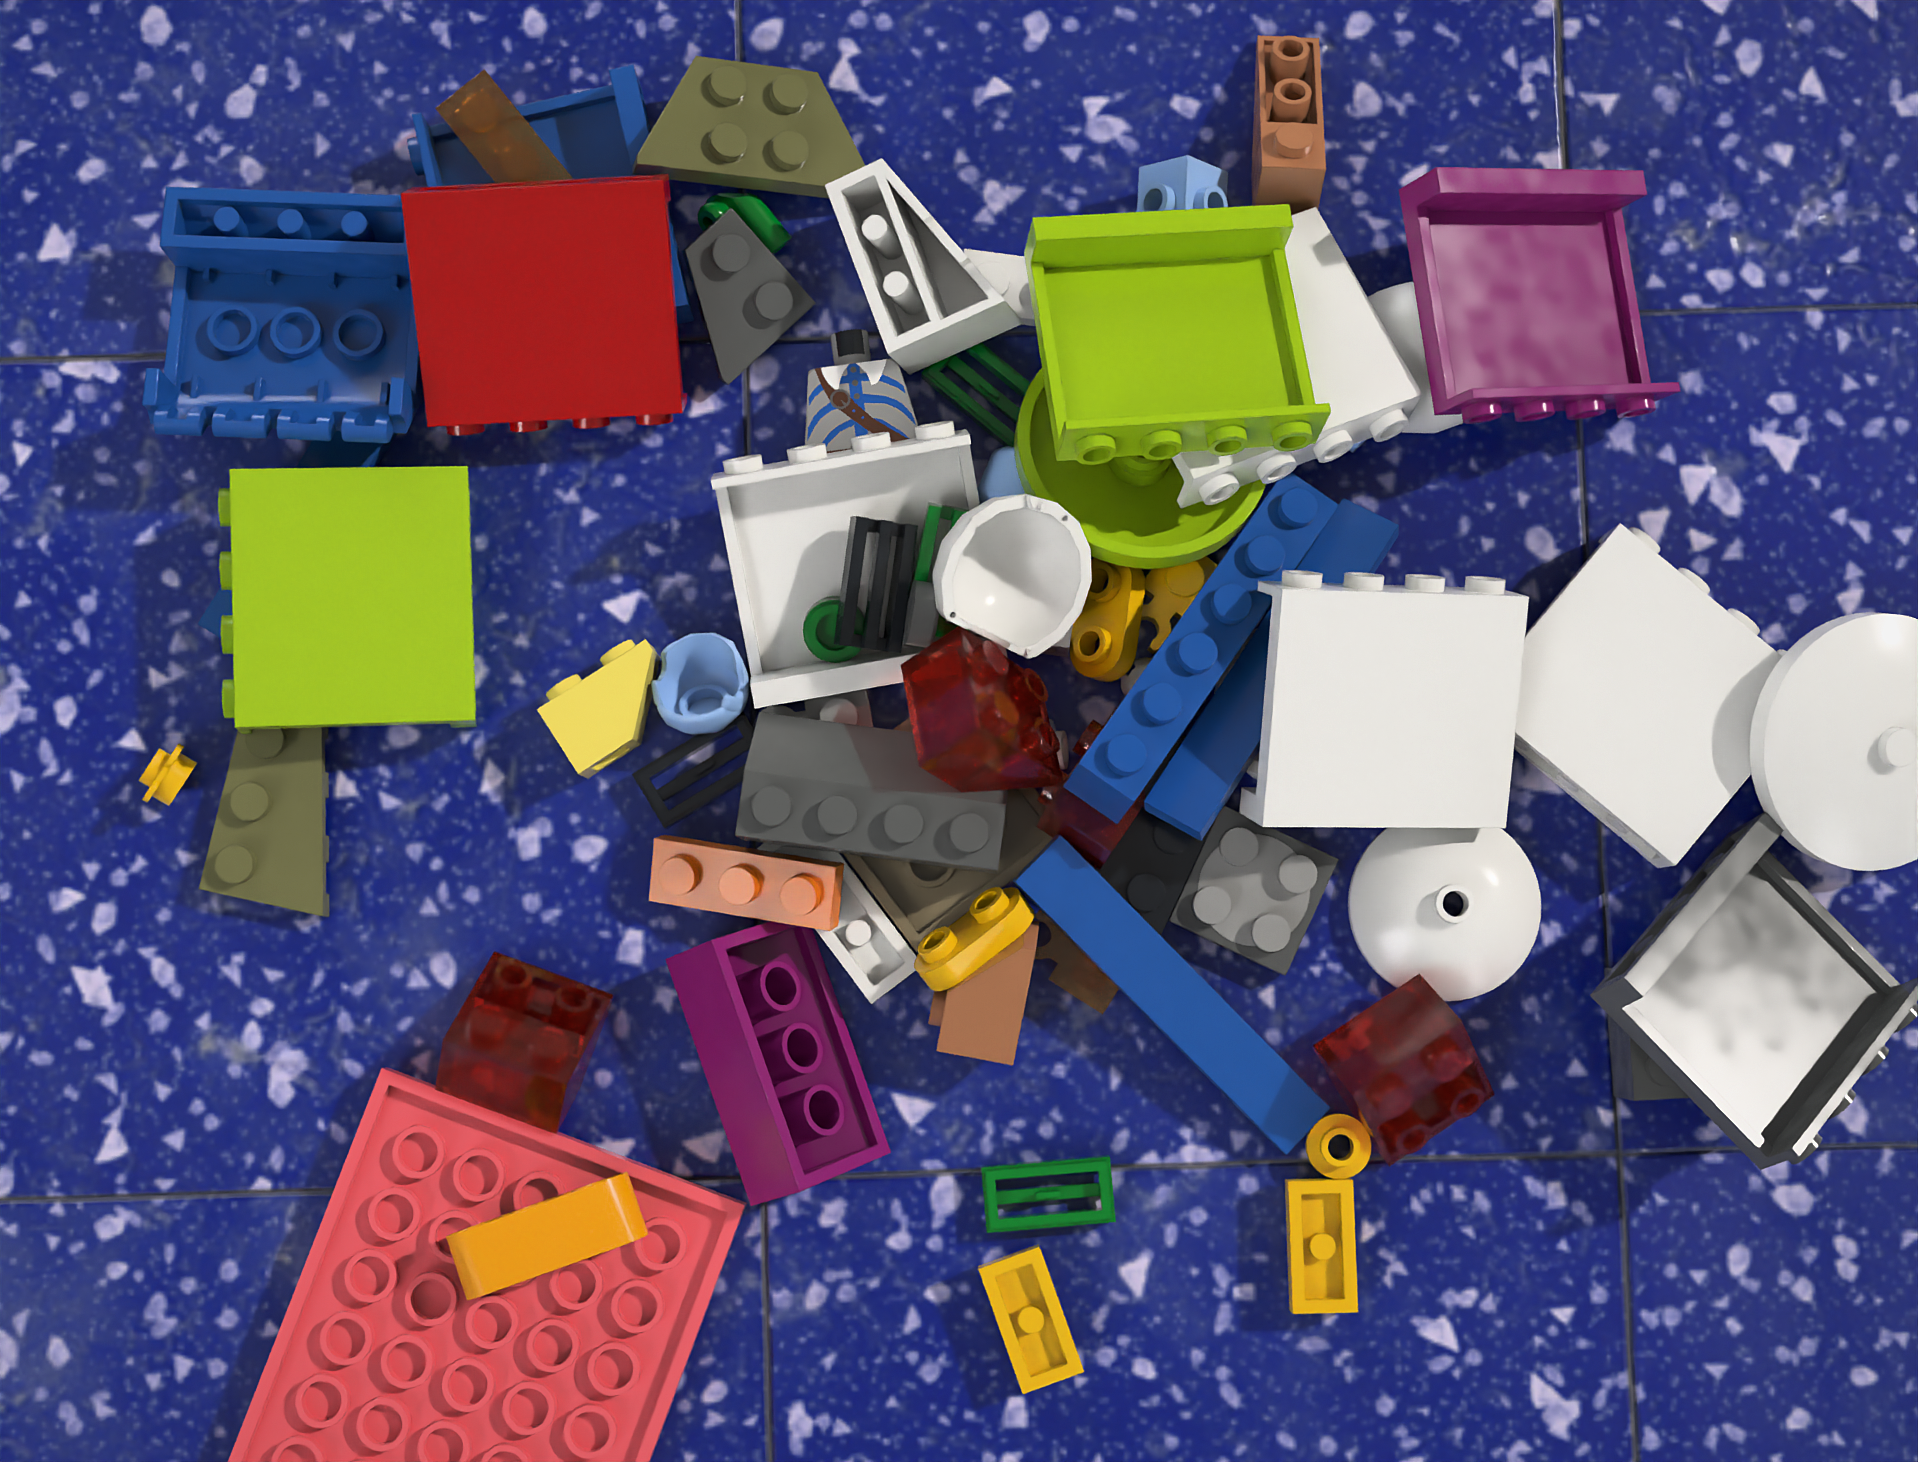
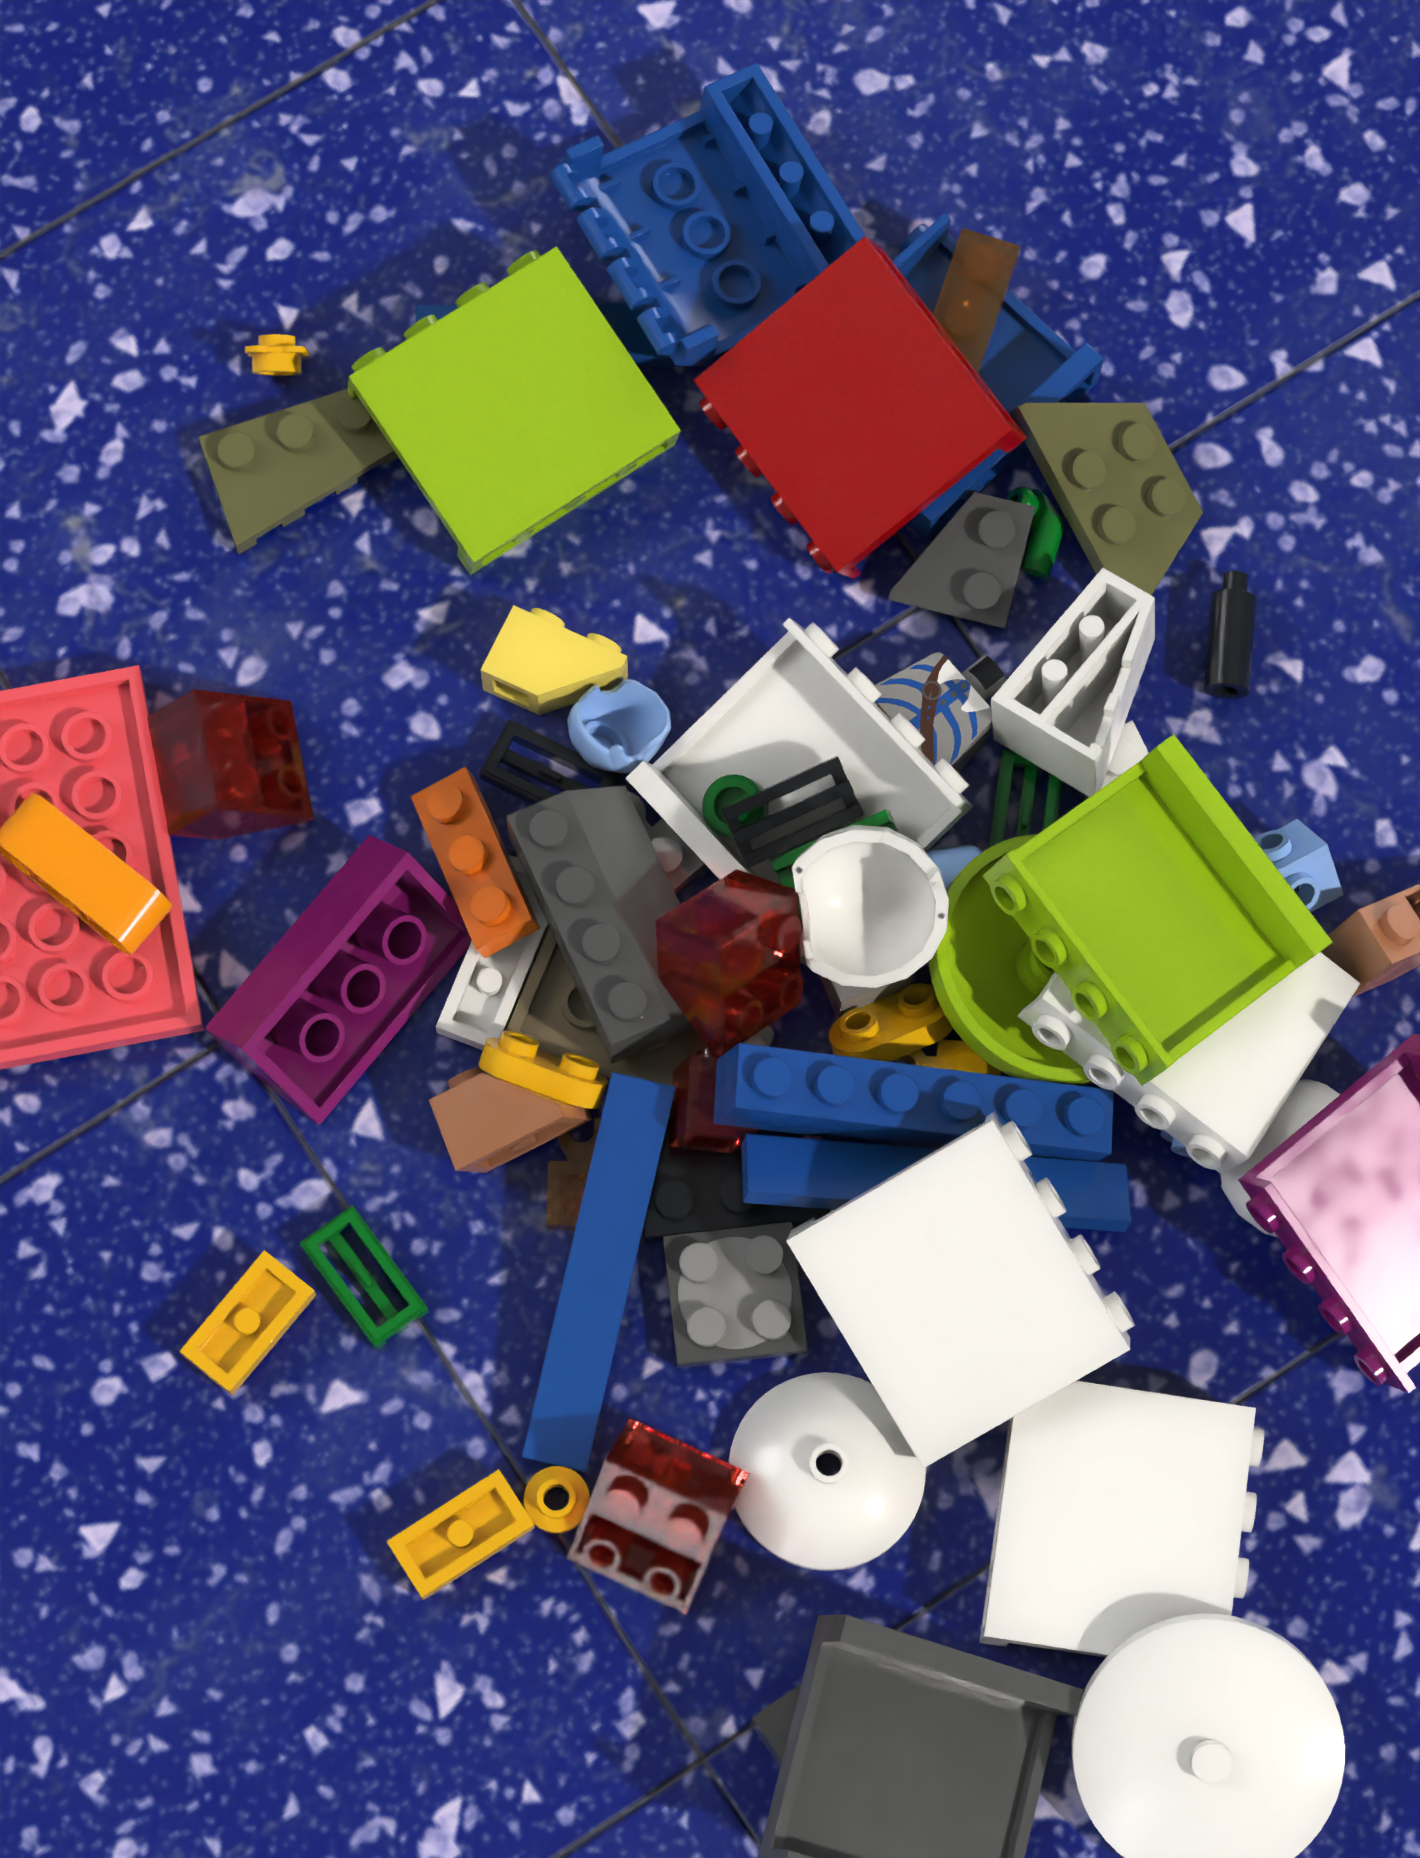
camera: 55 degrees right, 10 degrees down
(921, 615) = (779, 862): dark grey tile -> none
(942, 120) = (1230, 638): none -> black cylinder

